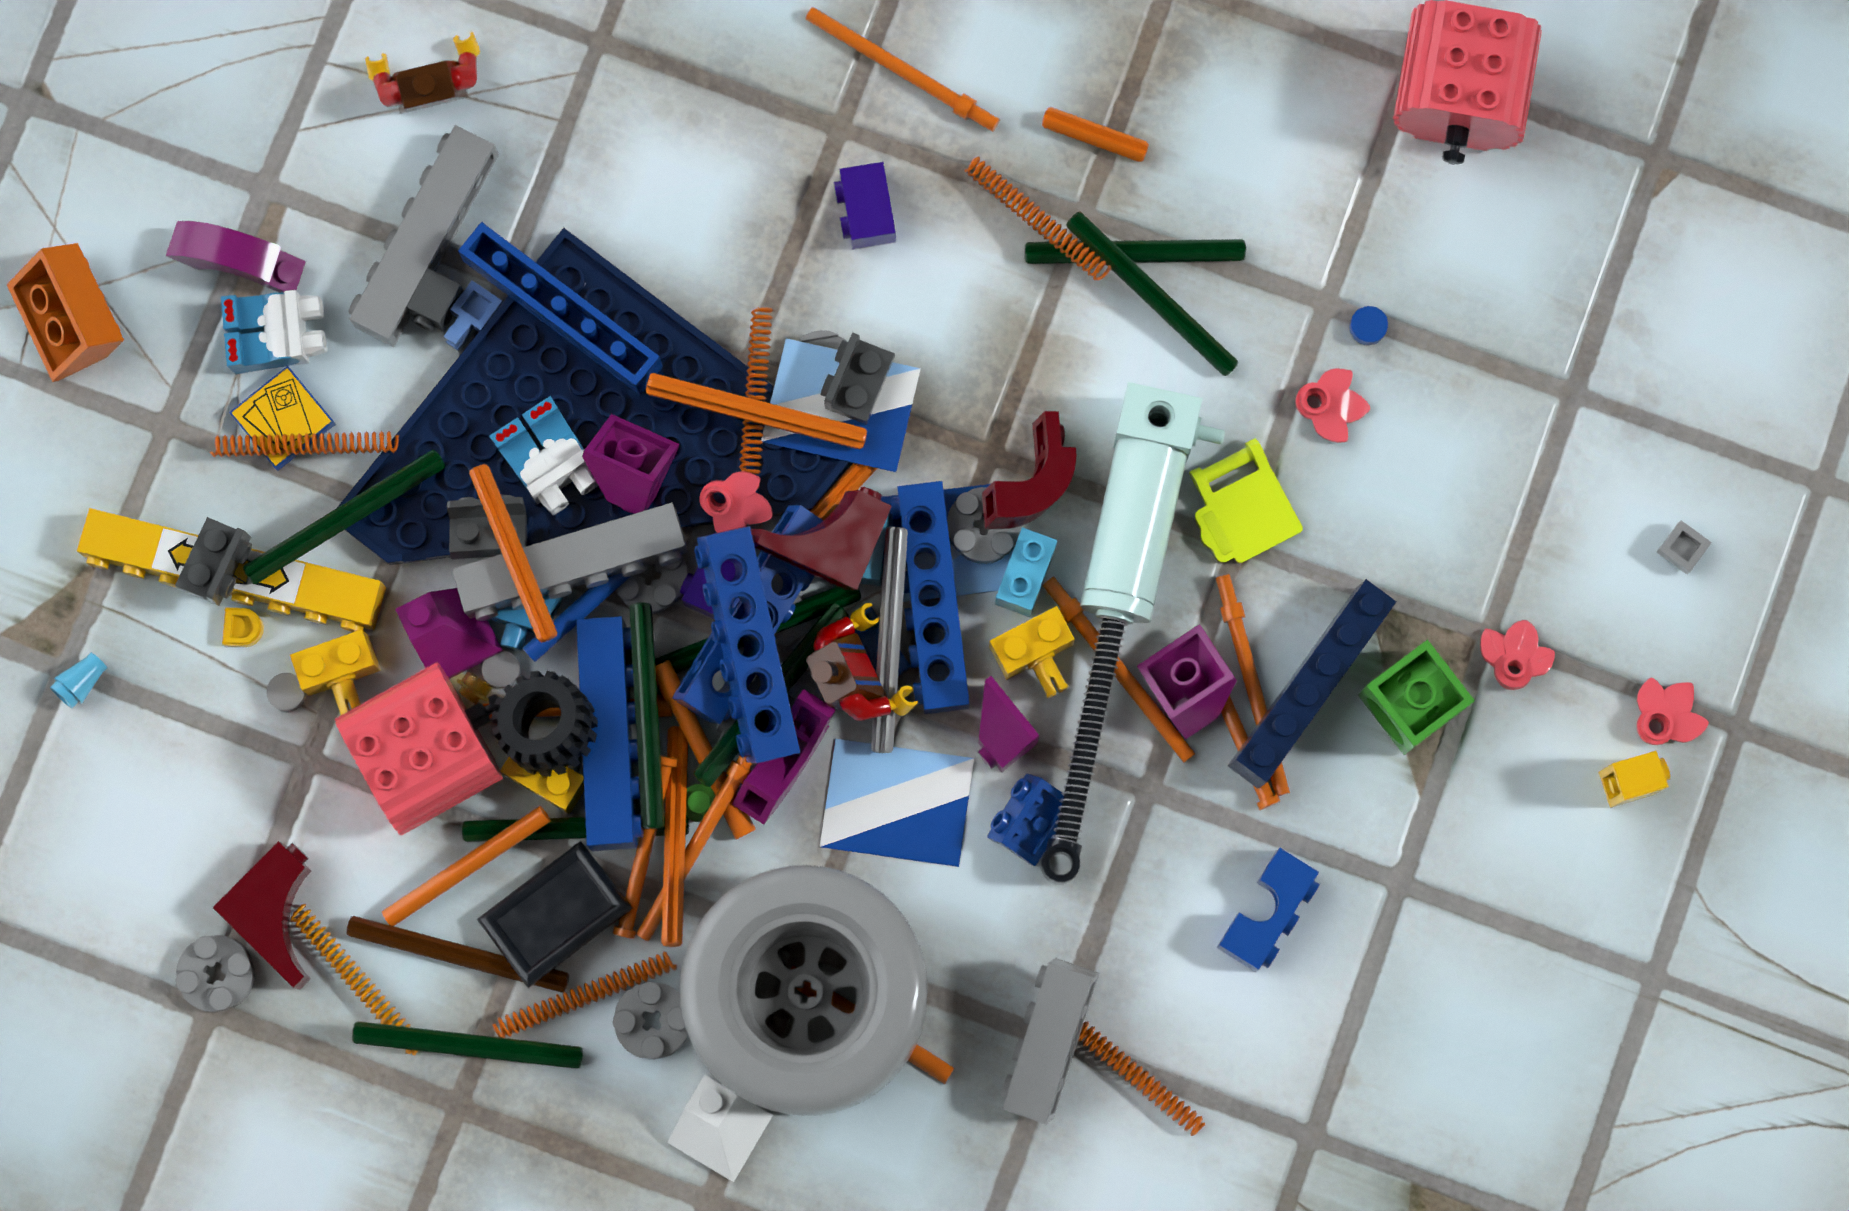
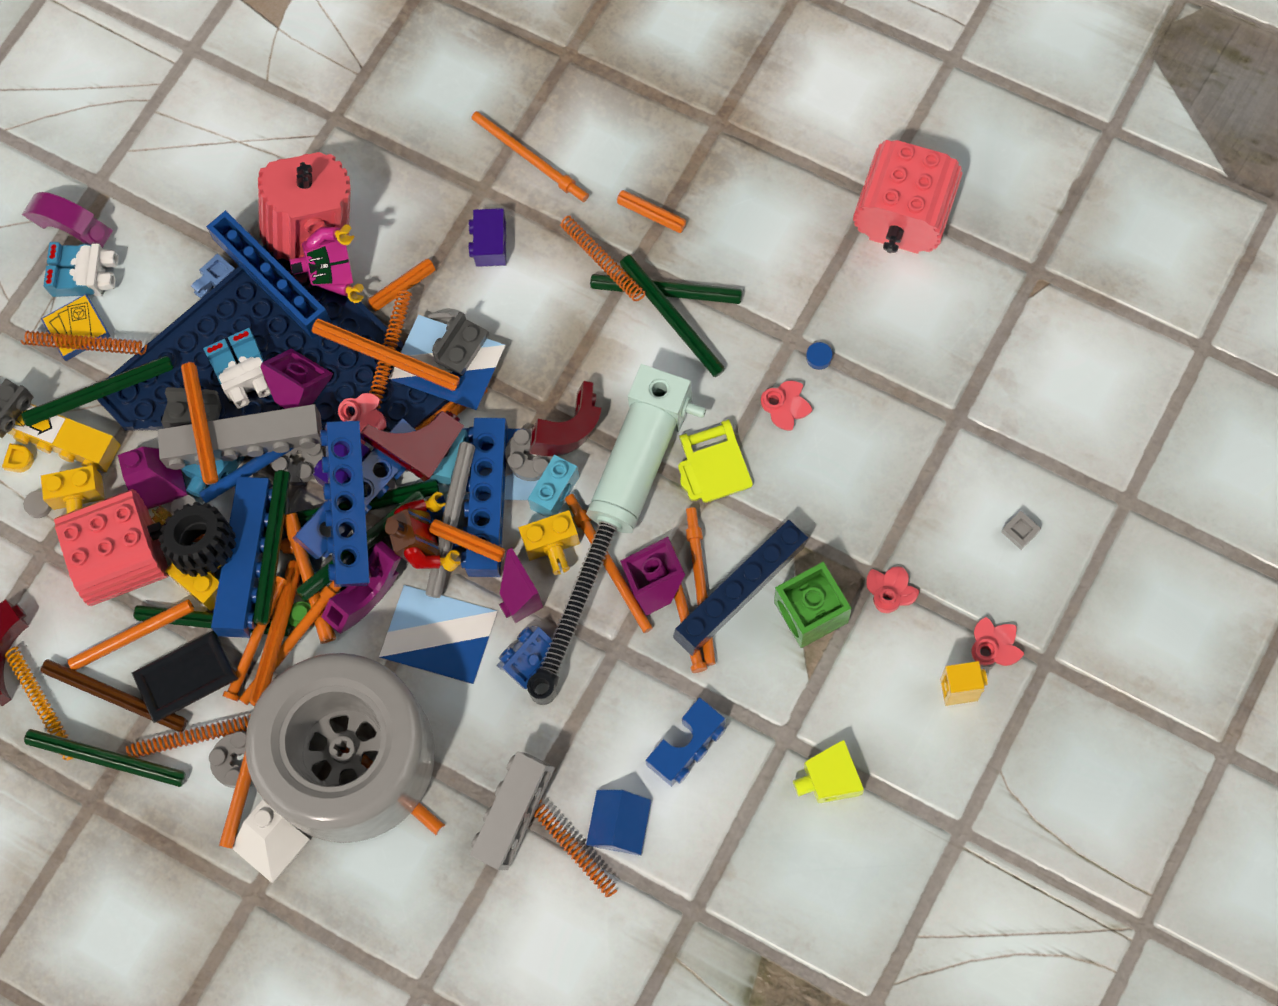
camera: 15 degrees right, 10 degrees down
(424, 233) = (187, 227): light grey brick -> none
(429, 83) = (215, 126): torso -> none
(433, 300) = (188, 262): dark grey brick -> none
(596, 202) = (298, 199): none -> coral piece
(647, 281) = (328, 262): none -> torso
(669, 1054) = (236, 807): none -> orange piece
(750, 292) = (402, 283): none -> orange axle
(922, 670) = (467, 540): none -> orange axle
(1192, 1031) = (619, 821): none -> blue slope
(1470, 928) = (830, 776): none -> neon yellow torso

